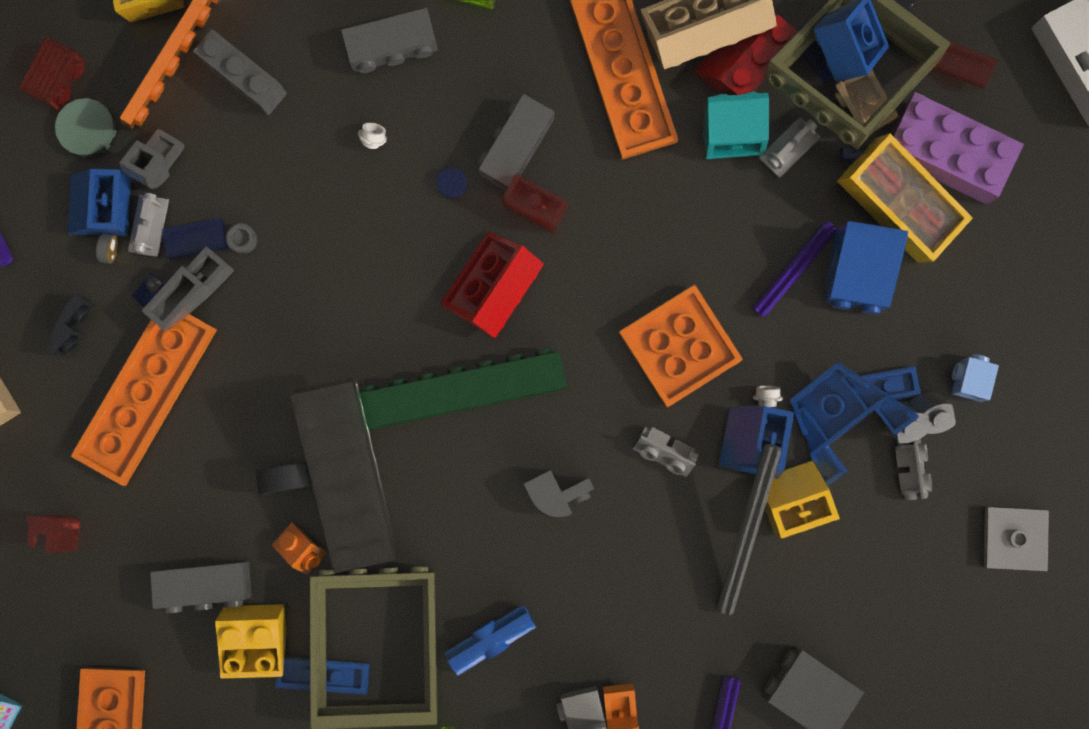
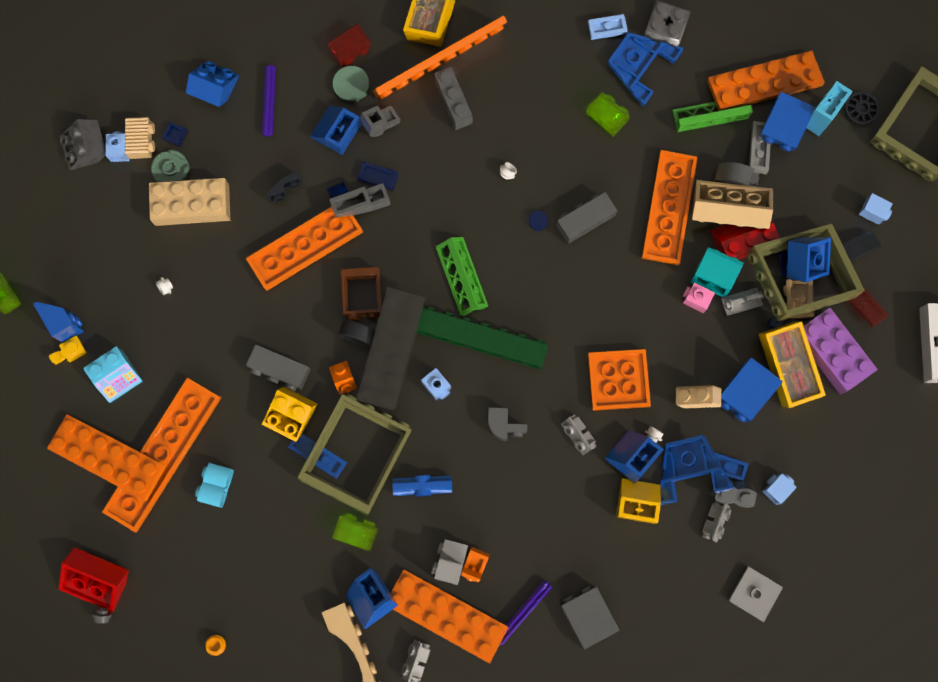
camera: 25 degrees right, 5 degrees down
(60, 532) = (218, 296): clear red hinge -> none
(107, 248) = (327, 155): dark grey tile -> none
(148, 225) = (356, 155): light grey hinge -> none
(241, 238) = (404, 189): dark grey tile -> none
(243, 392) = (361, 274): none -> reddish brown window
(389, 312) = (464, 273): none -> bright green fence
(390, 41) = (546, 124): dark grey brick -> none
(434, 489) = (436, 384): none -> light blue brick
(492, 283) = (531, 288): red slope -> none
(535, 203) = (579, 256): clear red brick -> none
(728, 173) = (698, 297): none -> bright pink brick
(749, 528) = (602, 501): dark grey axle -> none
(794, 269) = (708, 371): dark purple axle -> none
(802, 312) = (698, 396): none -> tan brick

